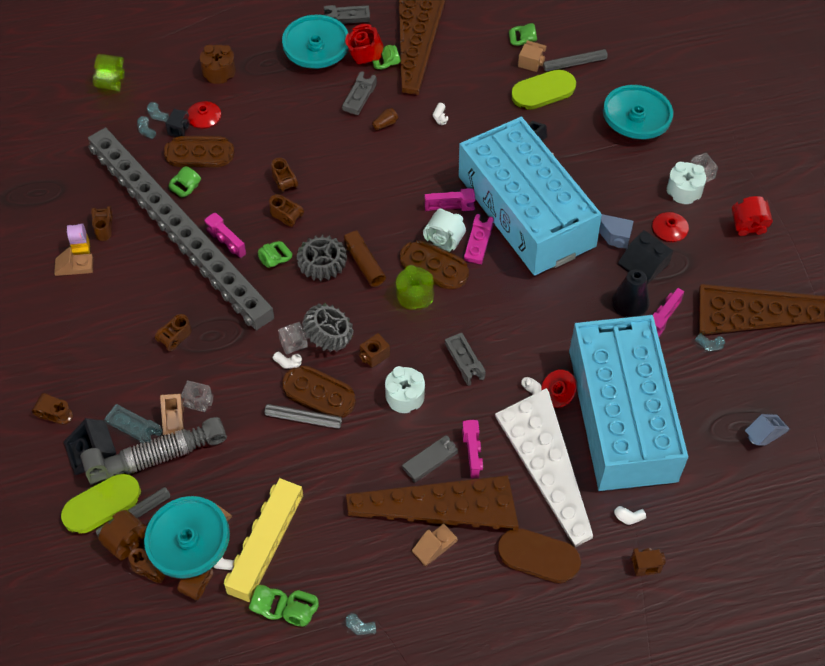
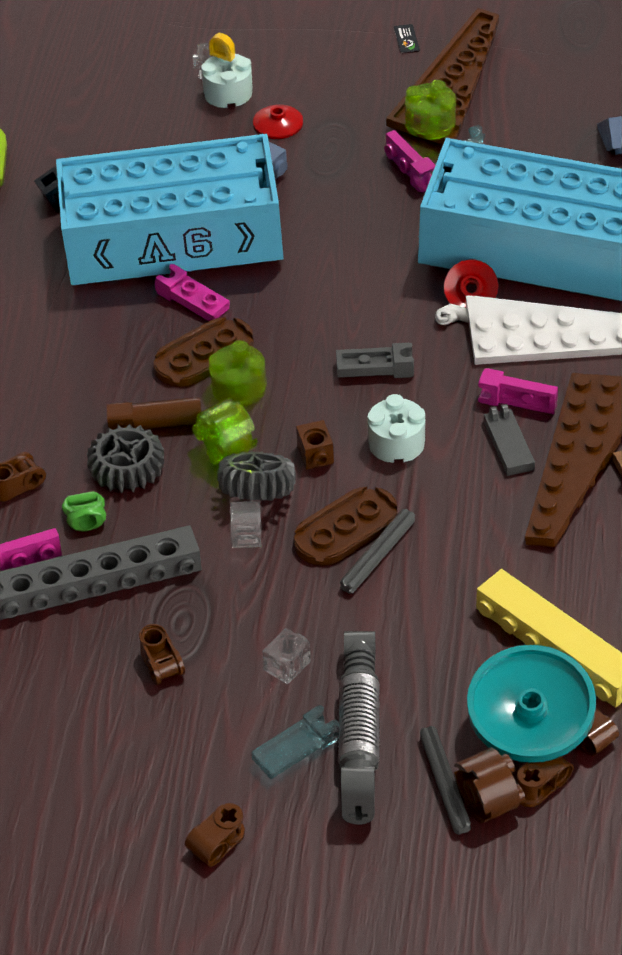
camera: 65 degrees left, 10 degrees down
(88, 435) = (308, 804): black slope -> none
(100, 503) = (413, 812): lime tile -> none
(172, 413) = (305, 684): medium nougat slope -> none
(294, 361) = (280, 543): white arm -> none
(356, 297) = (225, 430): none -> clear neon green brick
(445, 230) = (166, 312): light aqua brick -> none
(451, 200) = (112, 299): dark pink plate -> none
(632, 295) = (370, 175): black cone -> none
(638, 111) = (88, 82): teal dish -> none
(647, 255) = (317, 150): black slope -> none
(696, 164) = (222, 47): none -> yellow tile
(712, 304) = (430, 110): none -> clear neon green brick
(752, 216) = (317, 40): red brick -> none
(801, 269) = (406, 38): none -> black sticker

